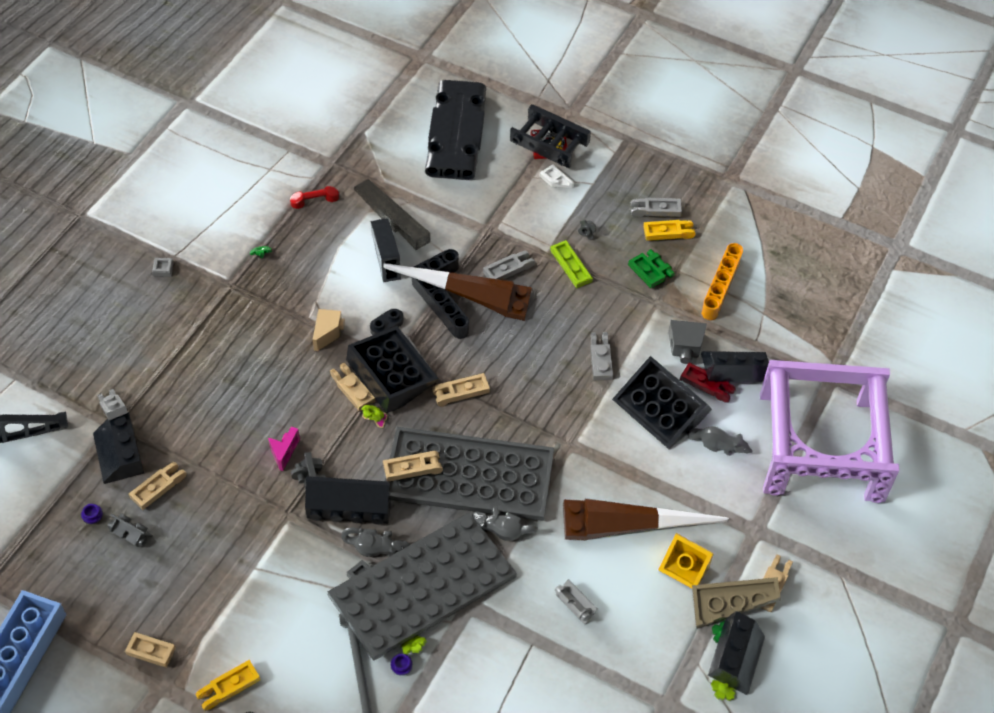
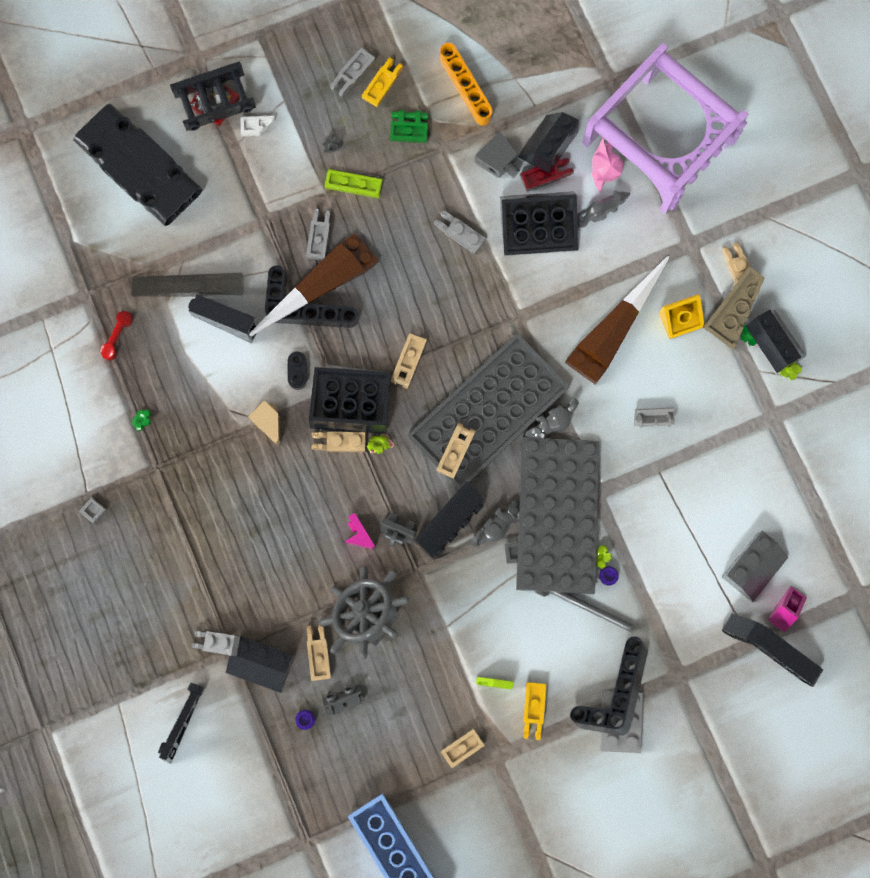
camera: 50 degrees left, 25 degrees up
(215, 489) = (370, 616): none -> dark grey piece
(231, 638) = (494, 683): none -> lime tile
(755, 415) = (606, 165): none -> bright pink hair

